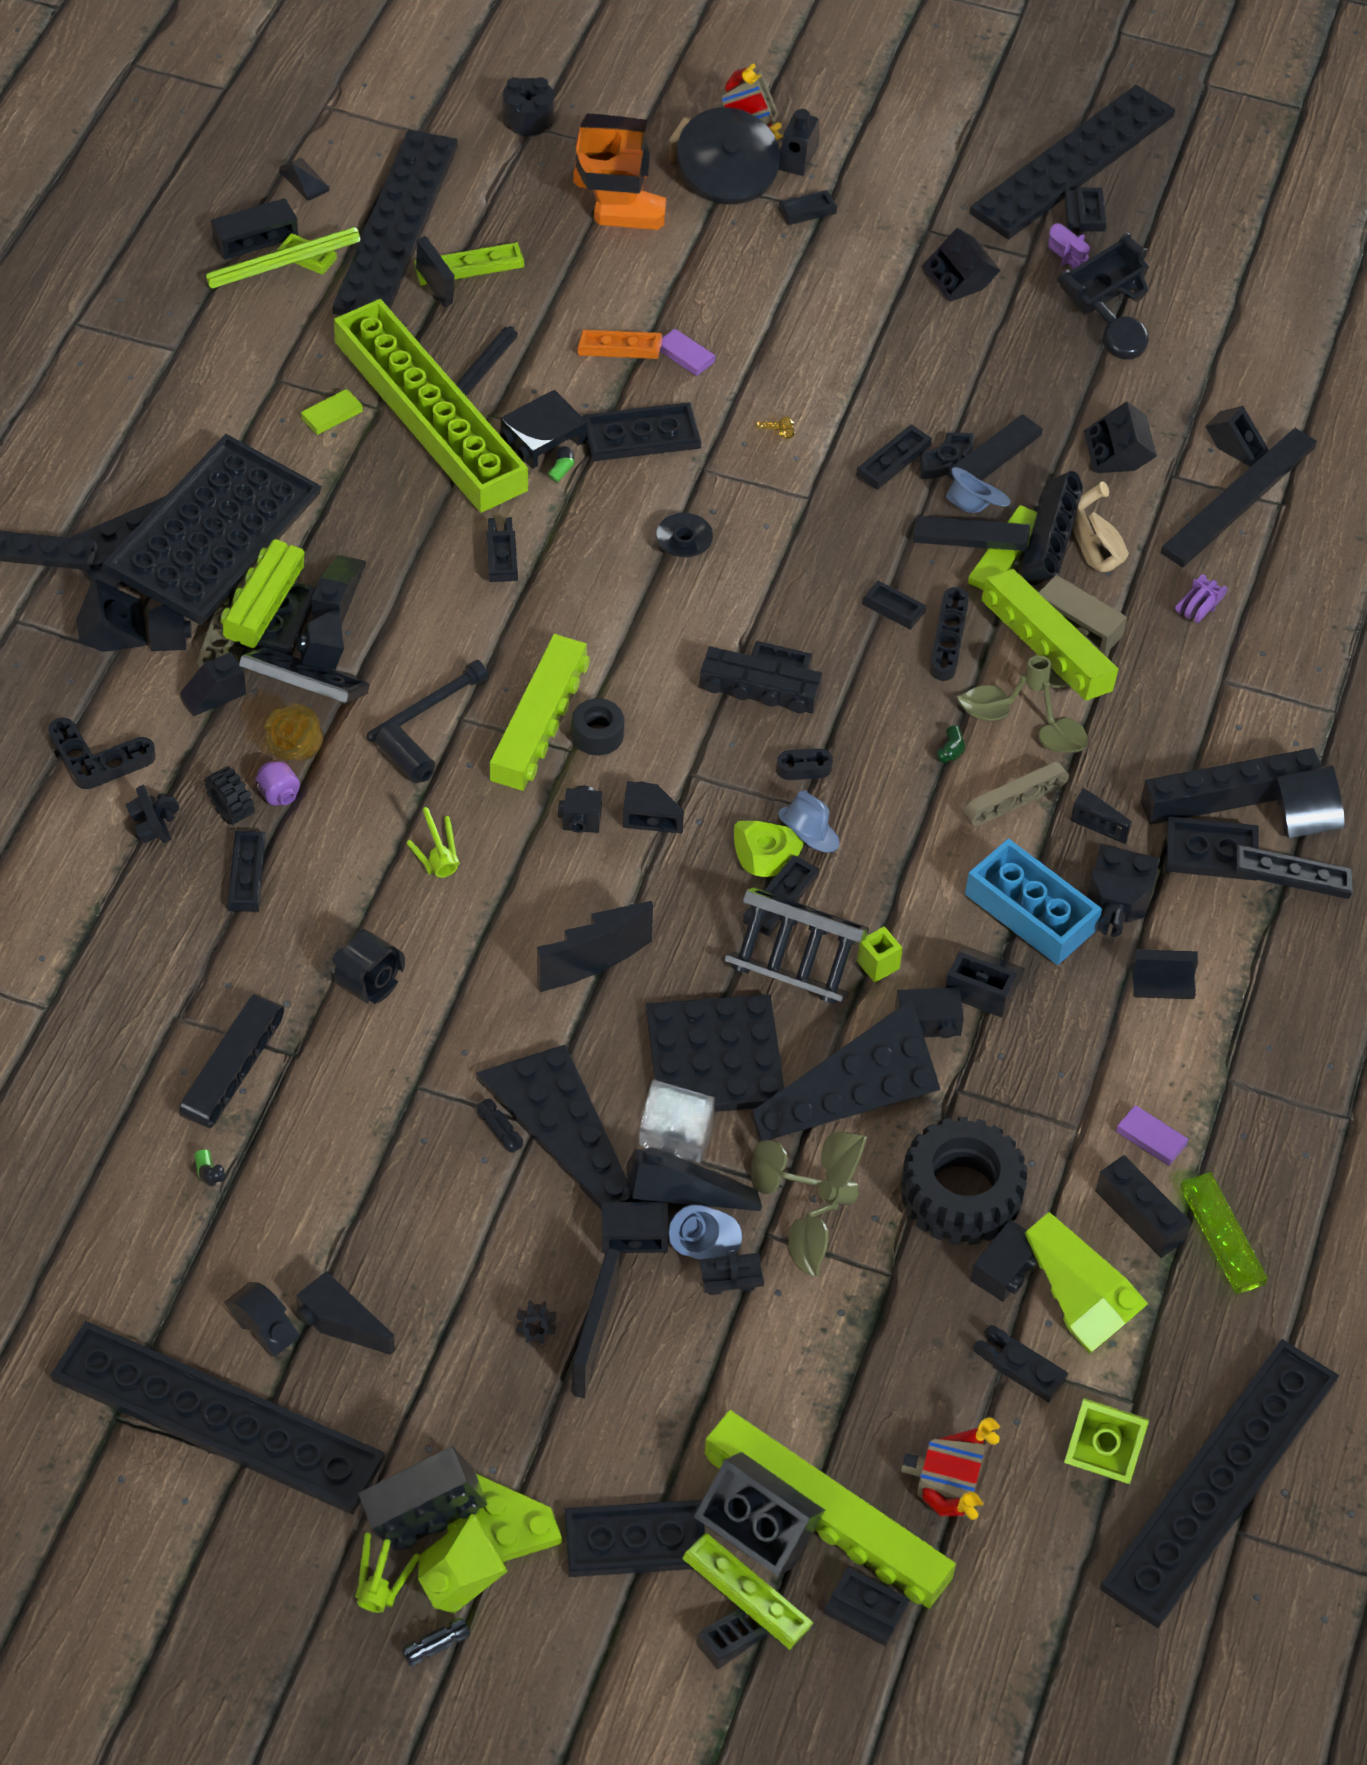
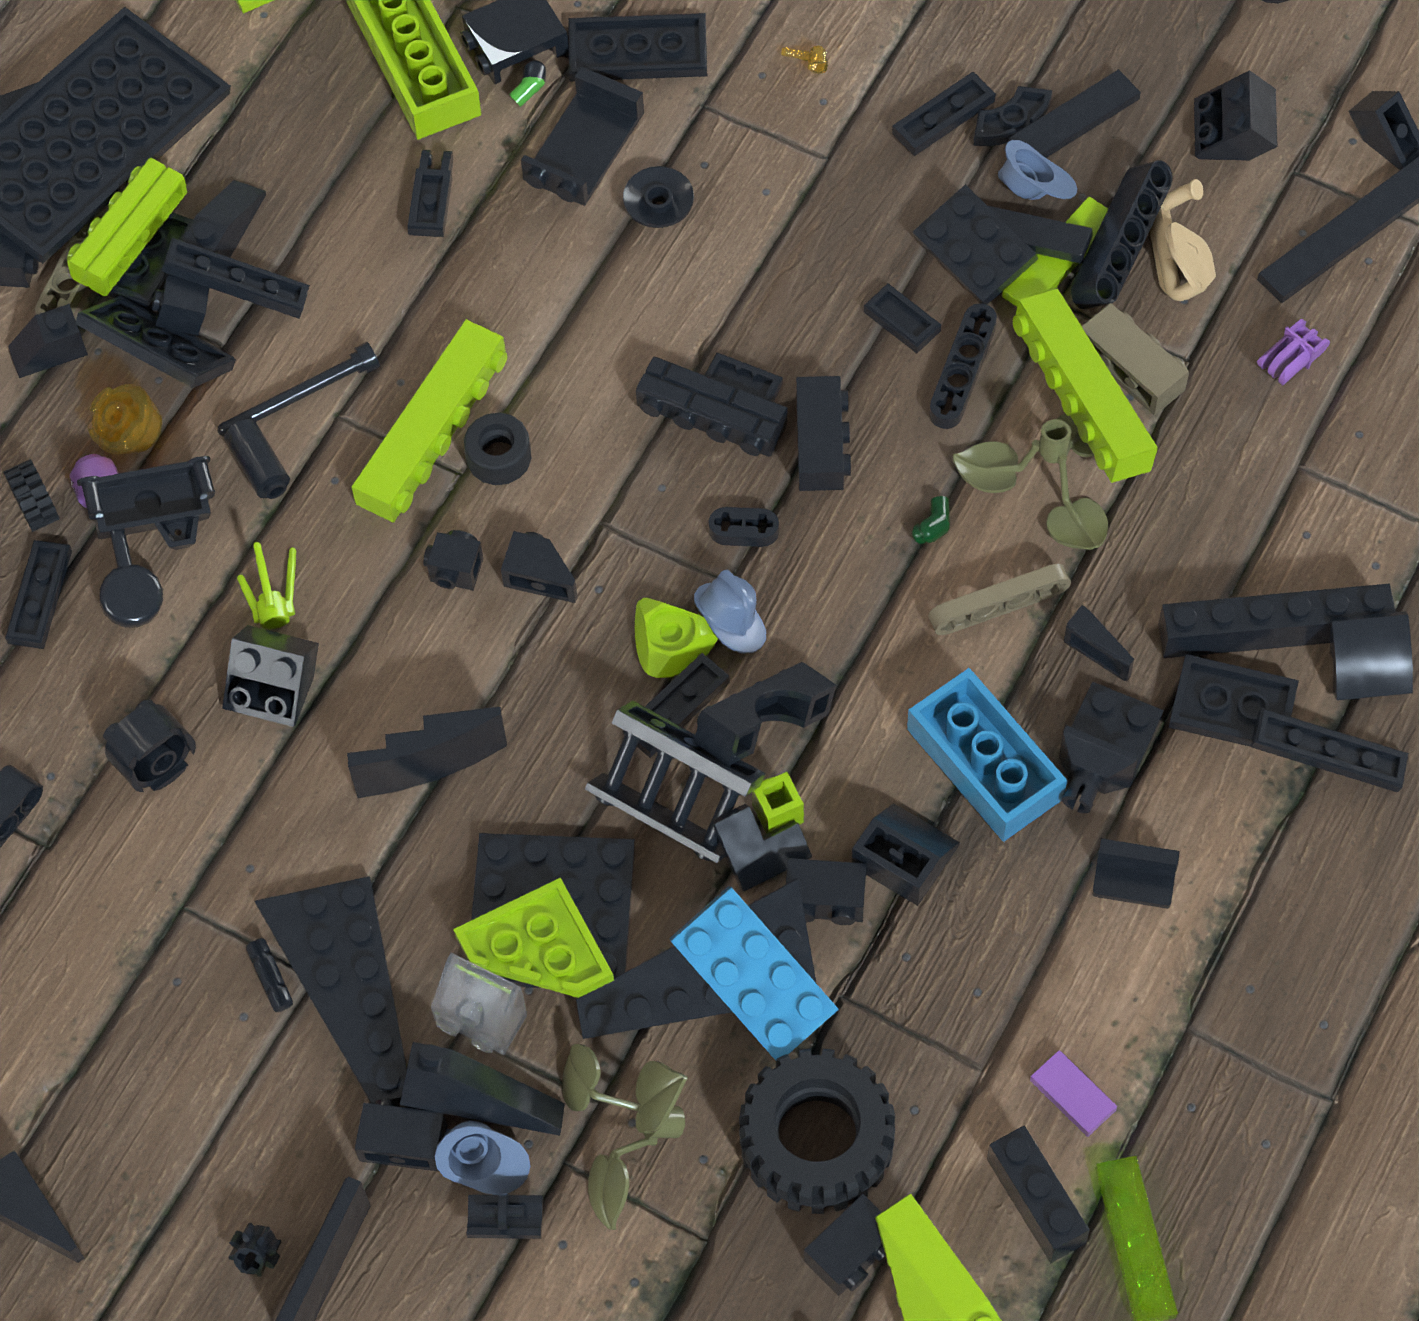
camera: 15 degrees right, 10 degrees up
(322, 790) = (138, 502): none -> black piece
(360, 622) = (235, 278): none -> black tile
(451, 908) = (269, 675): none -> black slope
(615, 498) = (585, 138): none -> black panel
(718, 1067) = (538, 943): none -> lime plate
(840, 891) = (791, 696): none -> black arch
(851, 690) = (822, 433): none -> black brick
(867, 993) = (756, 856): none -> black tile
(891, 1070) = (753, 973): none -> dark azure brick
(941, 545) = (975, 245): none -> black plate

